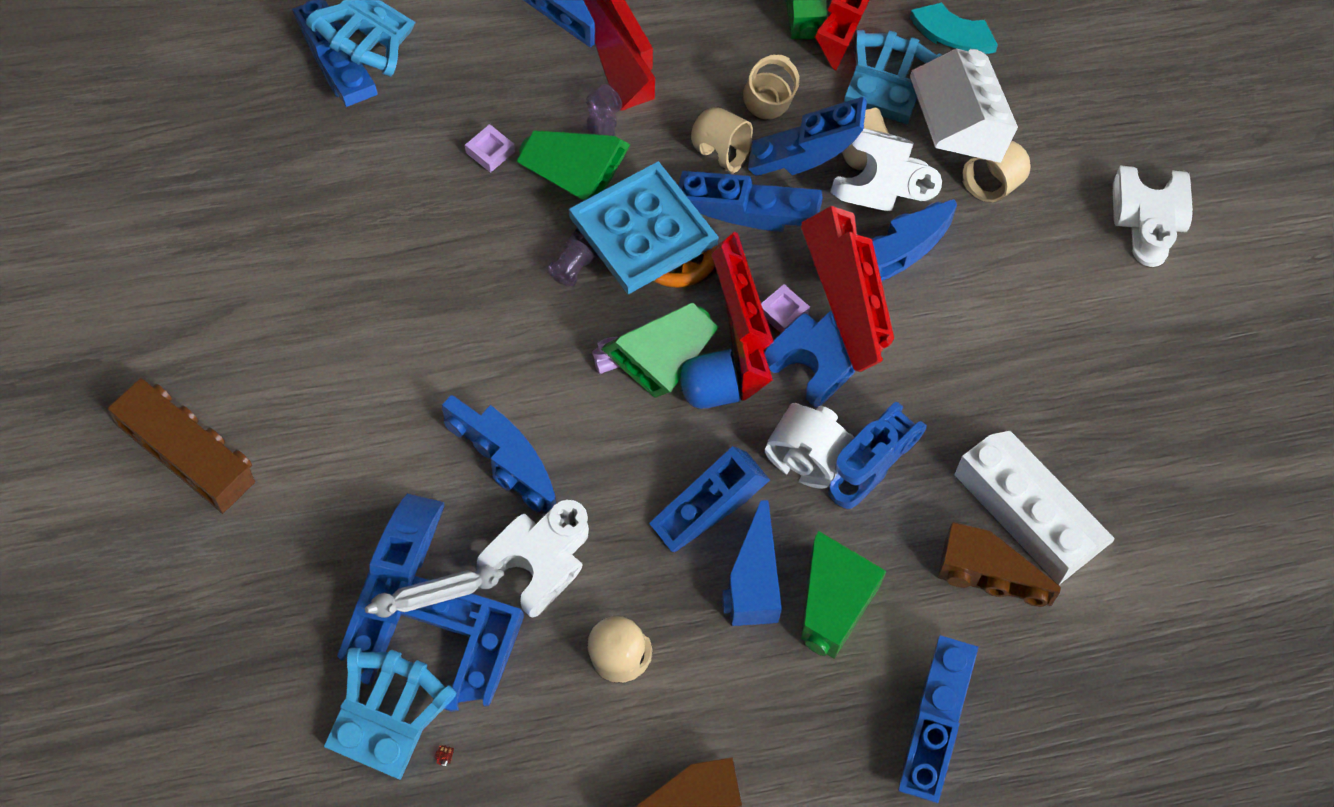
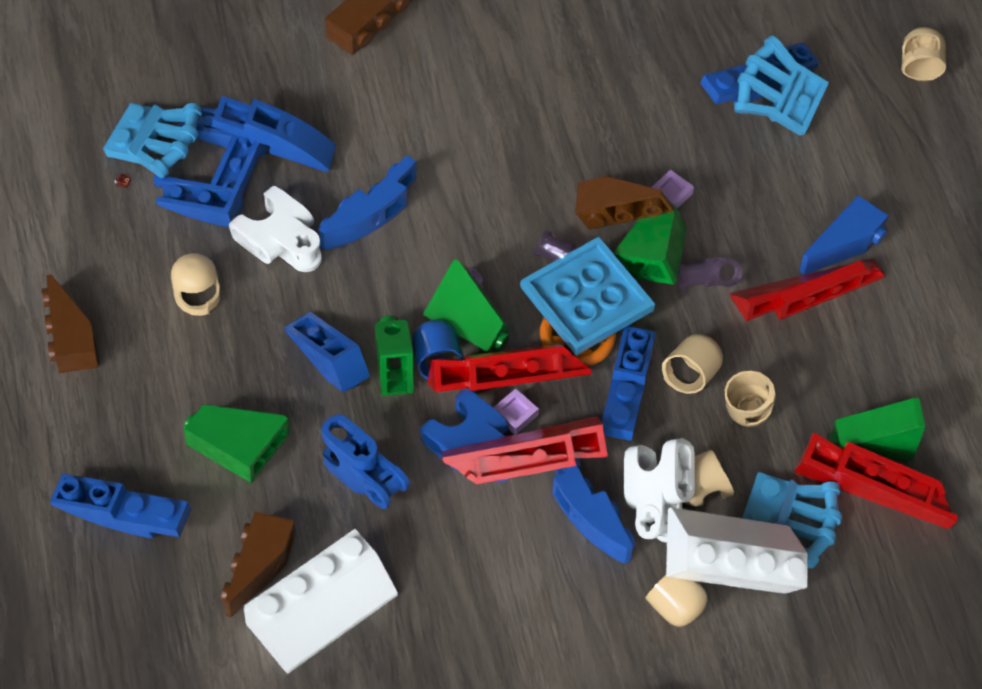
camera: 90 degrees right, 5 degrees down
(434, 591) = (235, 147): wheel -> none
(515, 195) = (615, 201): none -> reddish brown slope
(719, 422) = (394, 341): none -> green torso
(753, 583) = (255, 379): blue slope -> none
(808, 444) = (373, 410): white brick -> none
(817, 140) = (683, 415): blue slope -> none
(943, 26) = (851, 578): teal tile -> none

